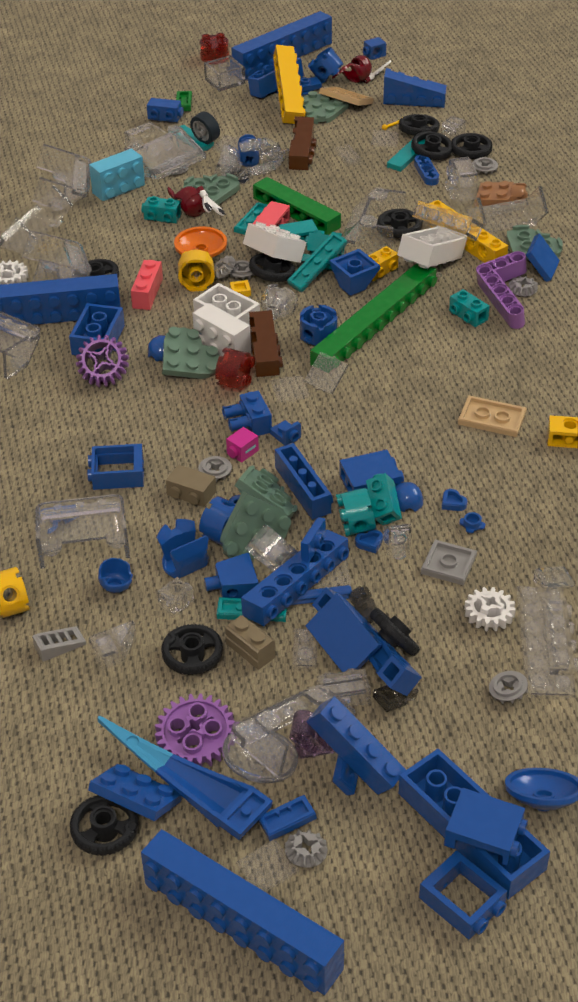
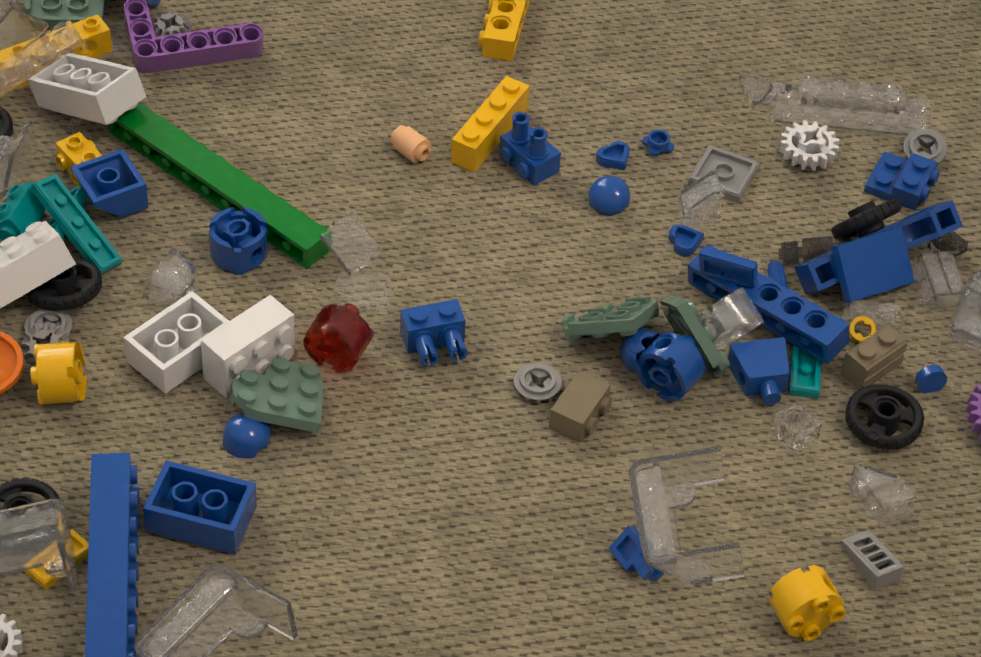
camera: 90 degrees left, 5 degrees up
(89, 352) = (294, 494): medium lavender gear -> none
(115, 575) = (761, 492): blue hair -> none
(116, 455) = (546, 464): blue window -> none
(146, 284) = (69, 440): coral brick -> none
(180, 549) = (731, 406): blue piece -> none
(234, 679) = (931, 379): none -> blue tile
(241, 287) = (107, 329): yellow plate -> none
(242, 444) = (496, 346): dark pink brick -> none
(264, 344) = (298, 296): reddish brown wedge -> none
(286, 432) = (473, 298): blue bracket -> none
(288, 638) = (866, 322): none -> yellow bush
(303, 481) = (586, 284): blue brick -> none
(356, 511) = (652, 234): teal brick -> none
(358, 469) = (572, 221): blue panel -> none
(383, 499) = (632, 207): teal brick -> none
(432, 394) = (410, 143): none -> light nougat brick
(437, 448) = (529, 150): none -> blue brick
(462, 429) = (488, 123): none -> yellow brick
(466, 672) = (903, 179): none -> blue plate
(469, 308) = (219, 83): teal brick -> none
(492, 416) = (452, 98): tan tile -> none

